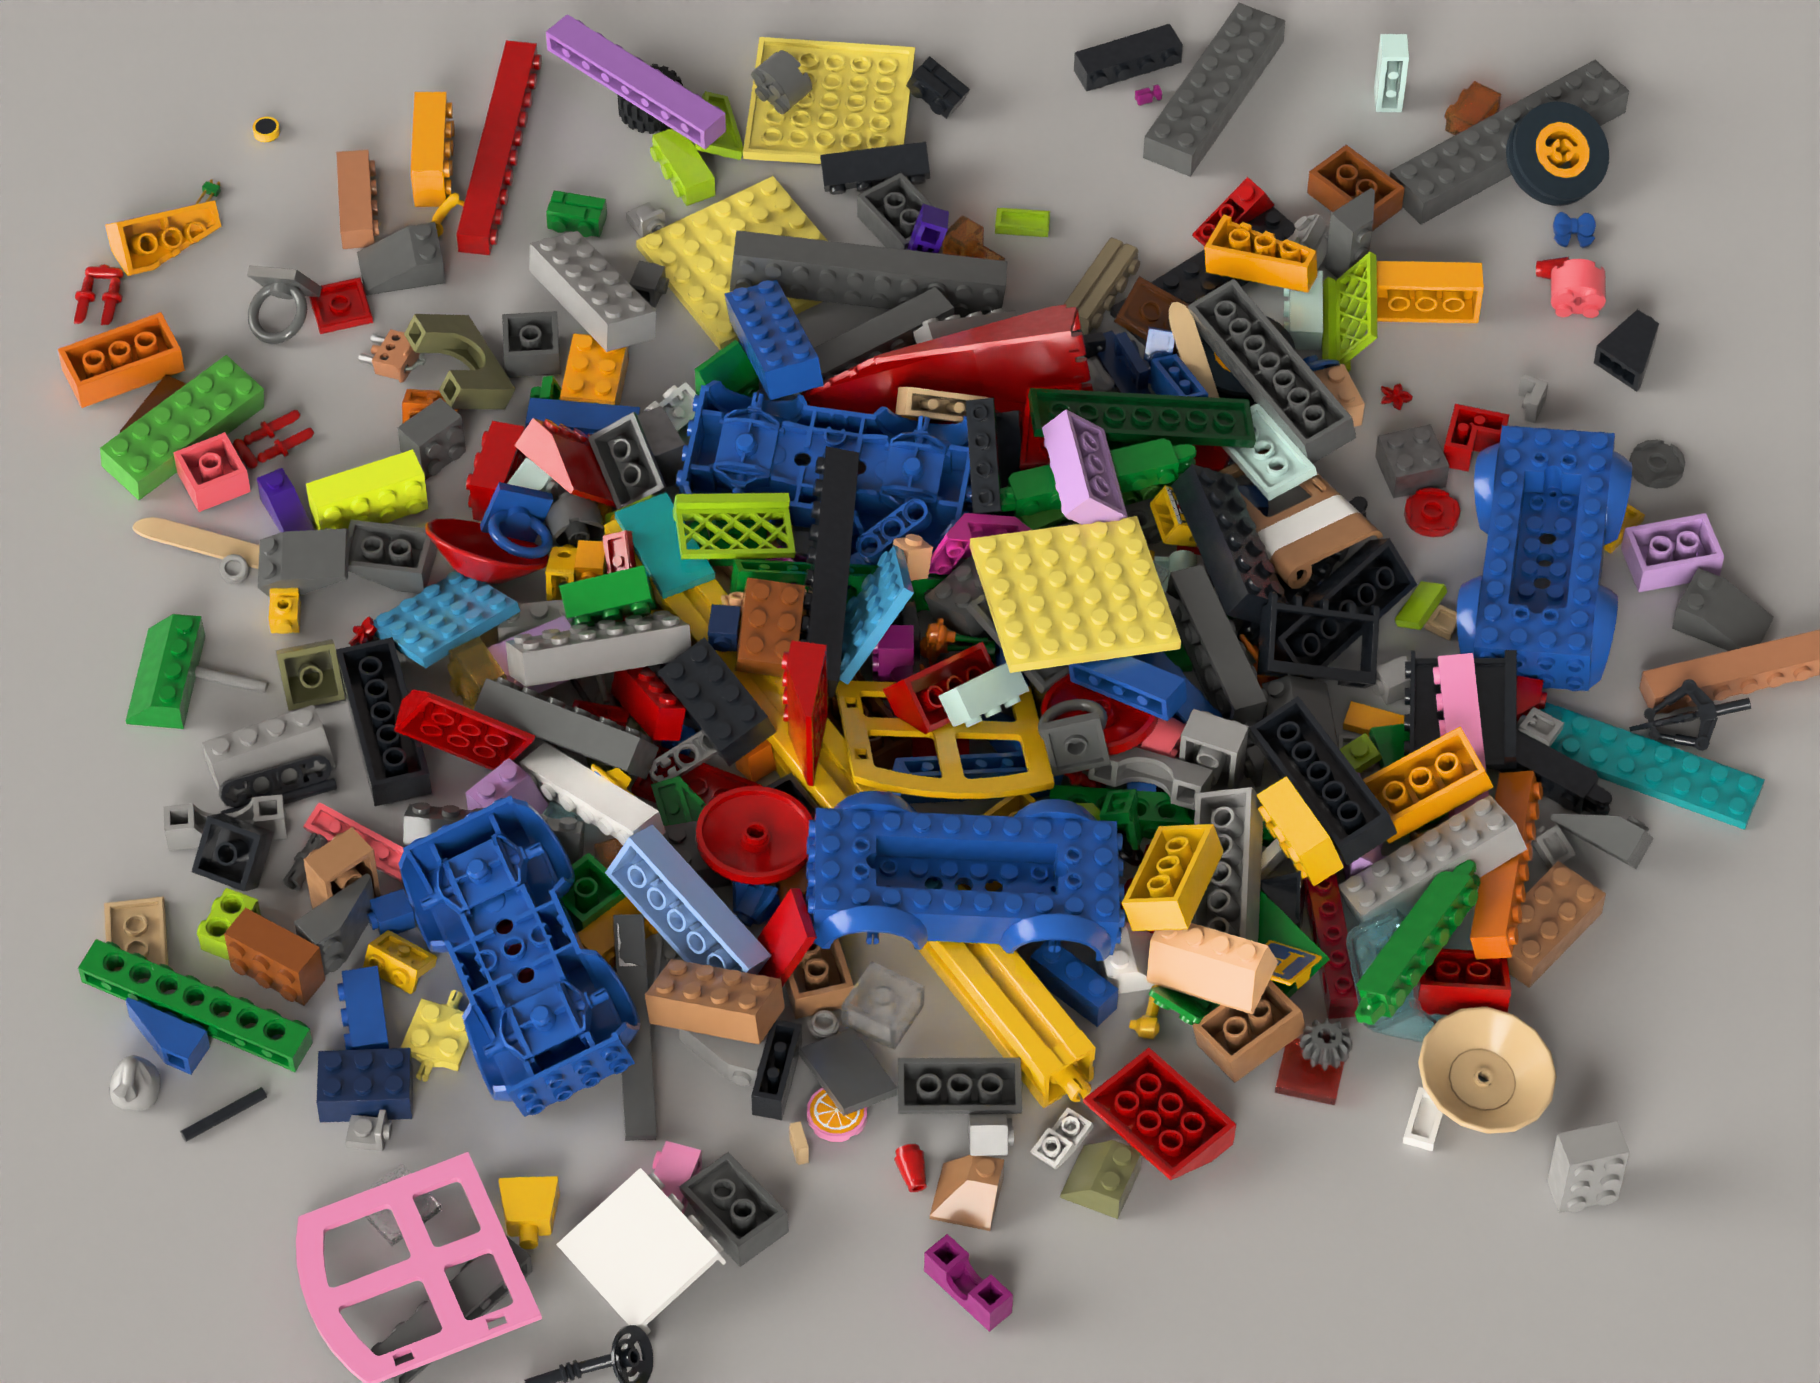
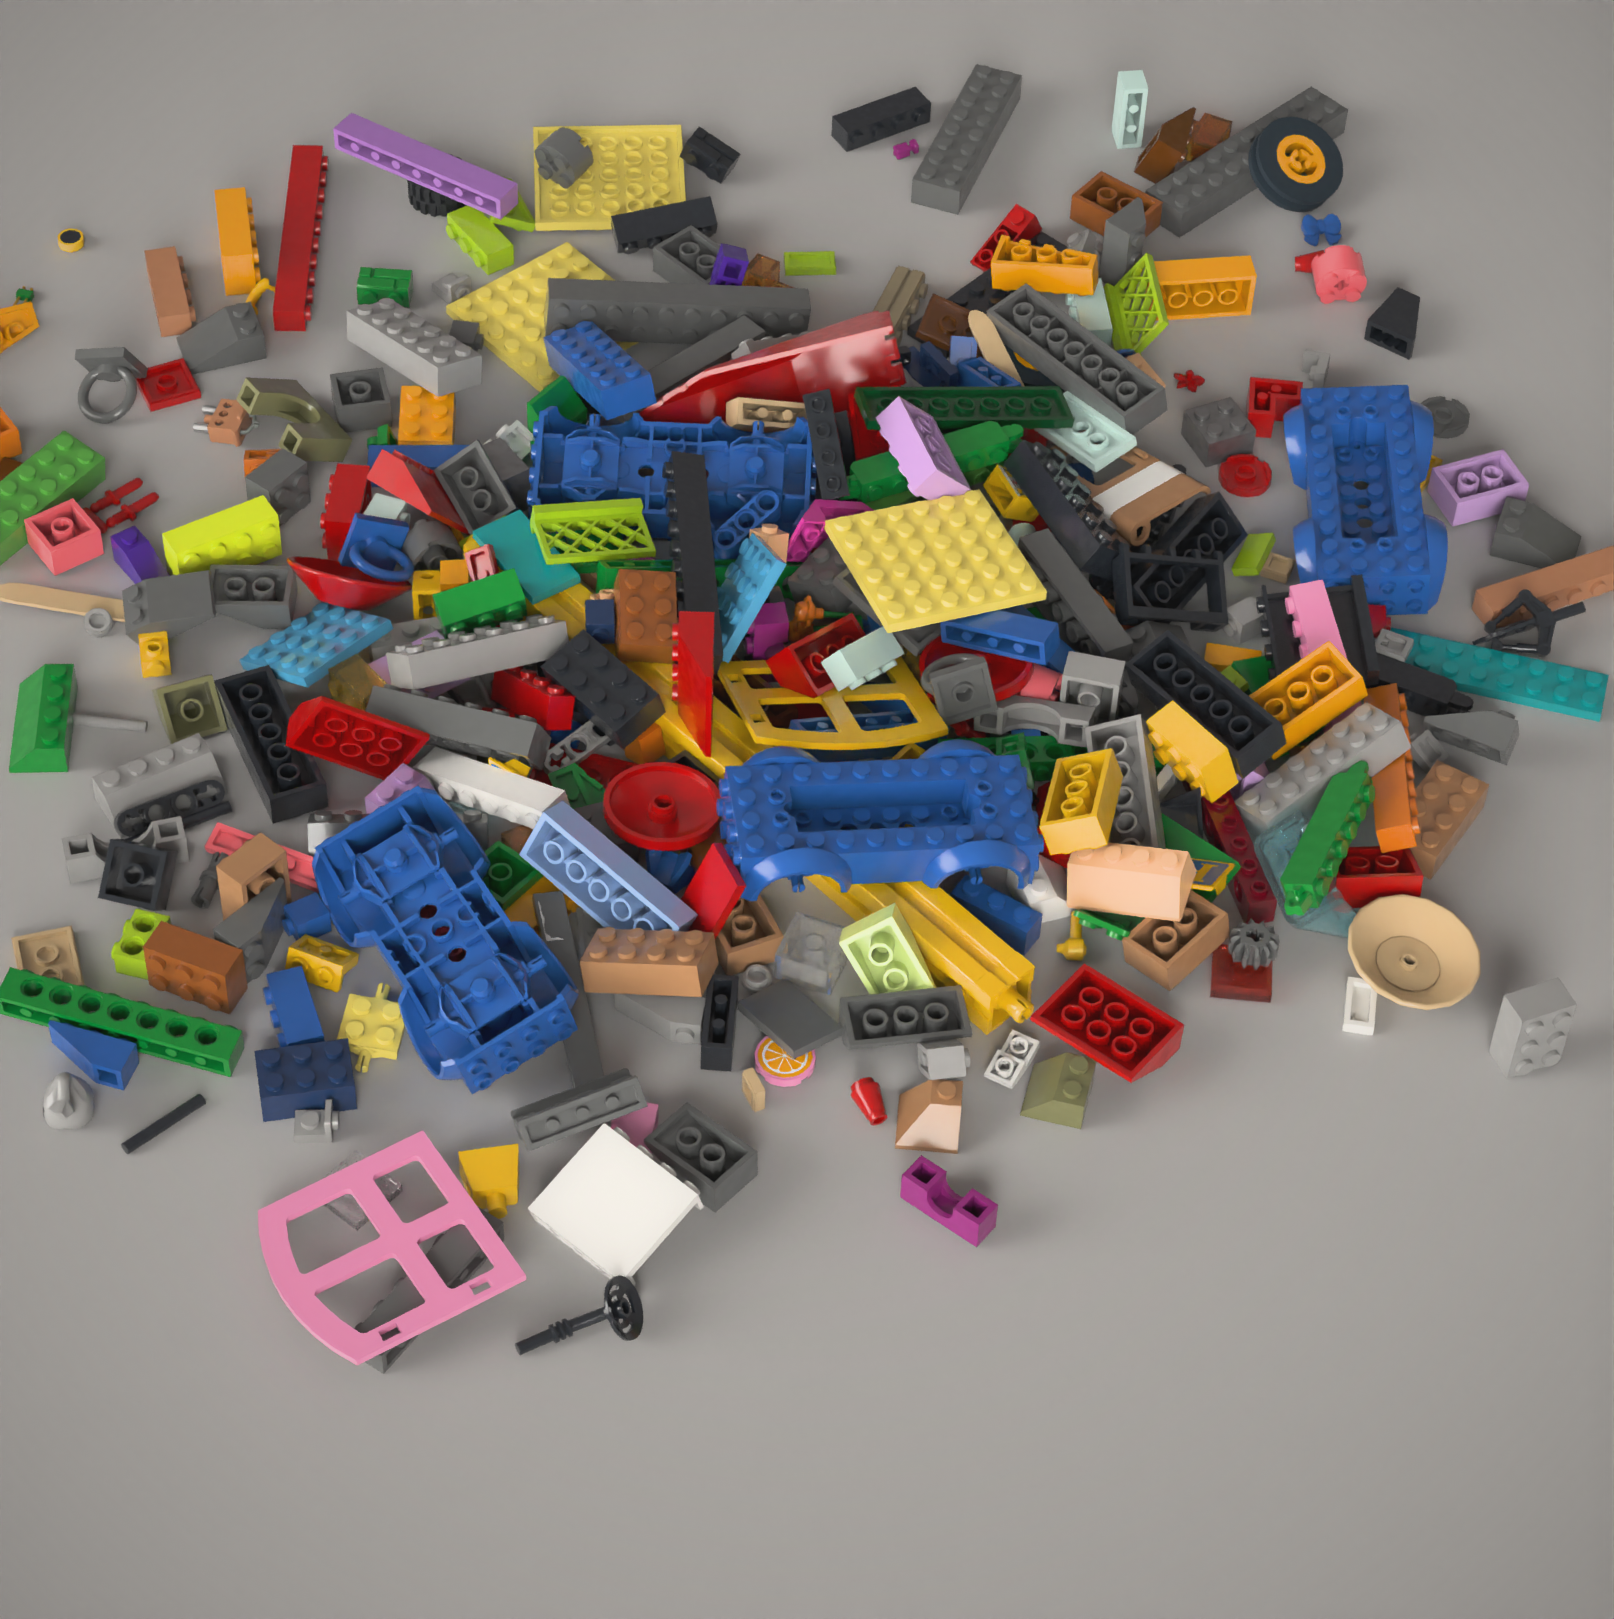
camera: 10 degrees left, 5 degrees down
(364, 632) = (238, 665): red plant -> none
(619, 1148) = (578, 1109): none -> dark grey fence
(950, 1017) = (885, 953): none -> yellowish green slope
(1423, 121) = (1166, 148): none -> reddish brown slope

